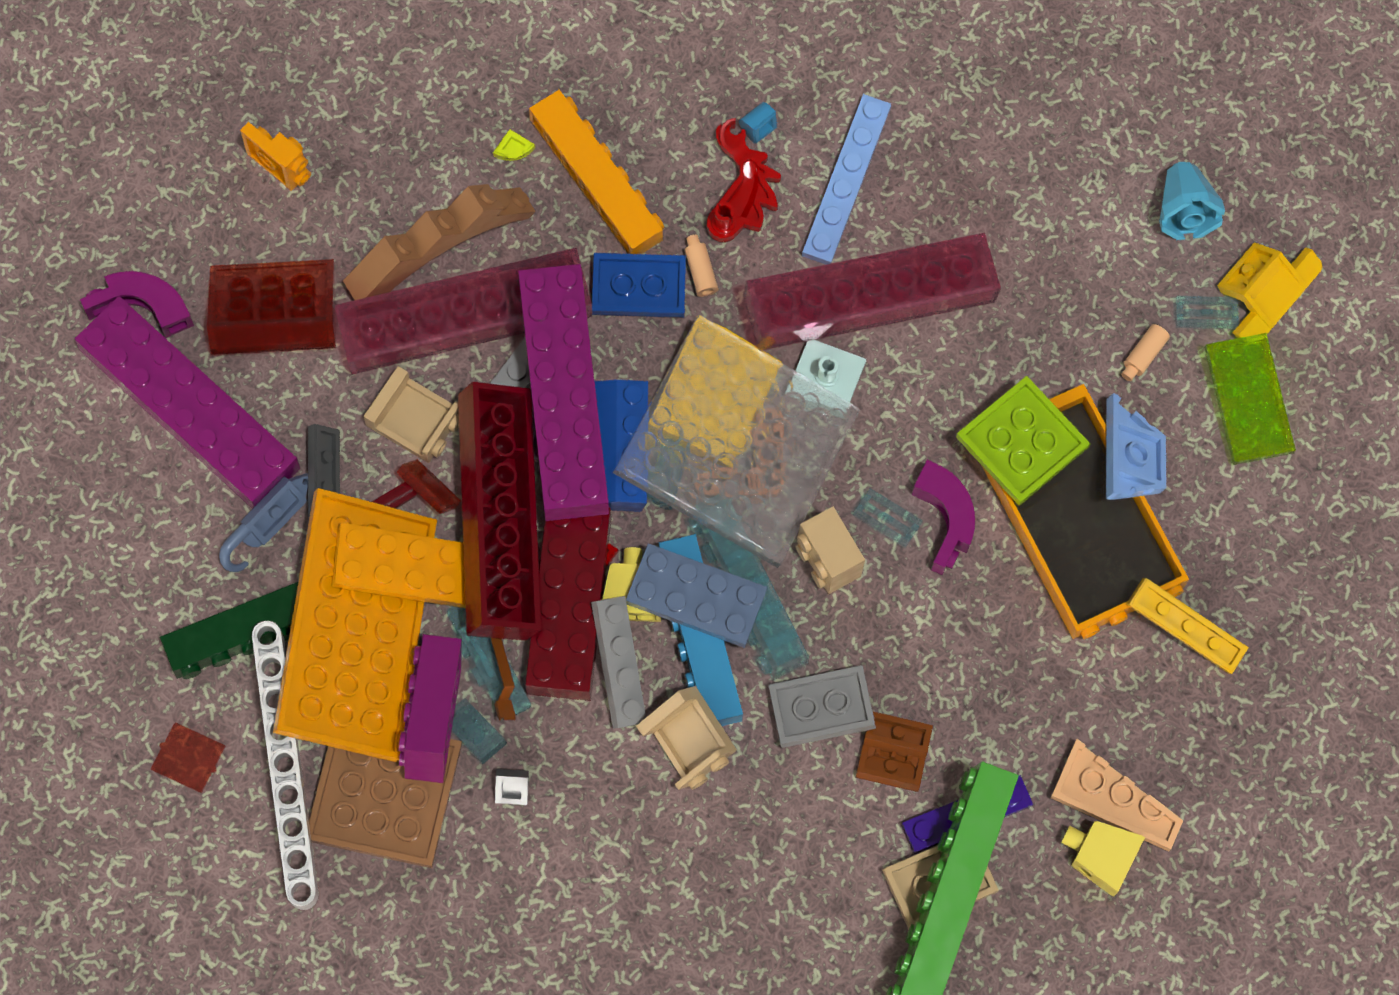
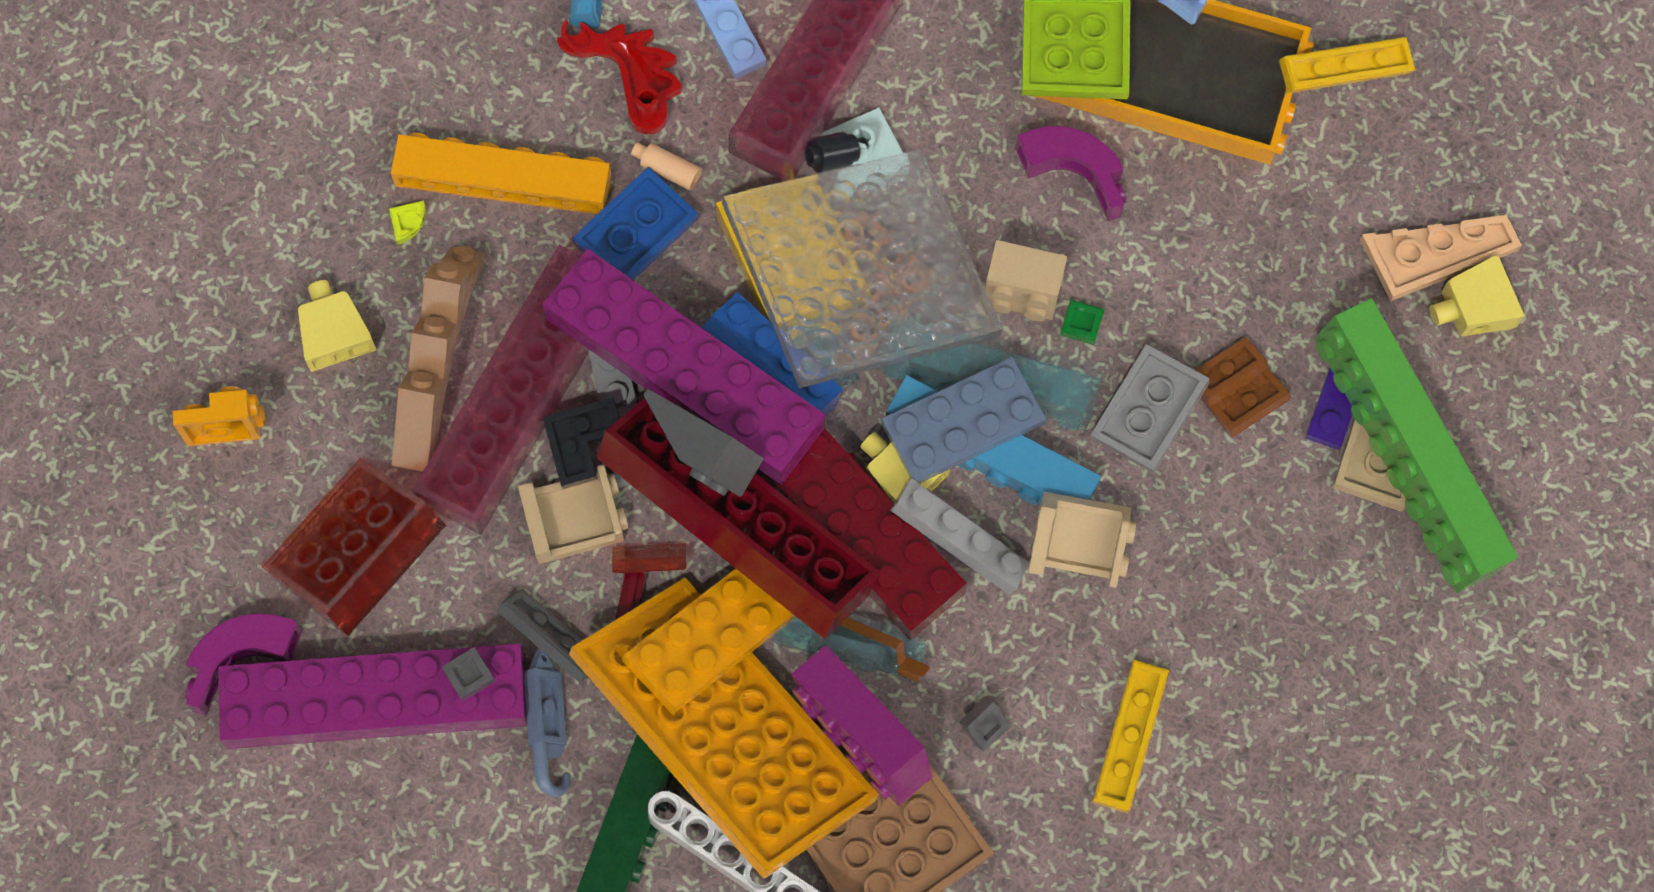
camera: 45 degrees left, 0 degrees up
(244, 443) = (468, 674): none -> flat silver plate
(398, 166) = (331, 328): none -> light yellow torso
(459, 369) = (570, 437): none -> black plate
(476, 732) = (916, 710): clear light blue plate -> none
(512, 446) = (711, 454): none -> dark grey slope
(591, 886) = (1130, 736): none -> yellow tile
(798, 354) = (832, 152): none -> black brick
(843, 614) = (1082, 322): none -> green tile
(880, 527) = (1036, 226): clear light blue tile -> none

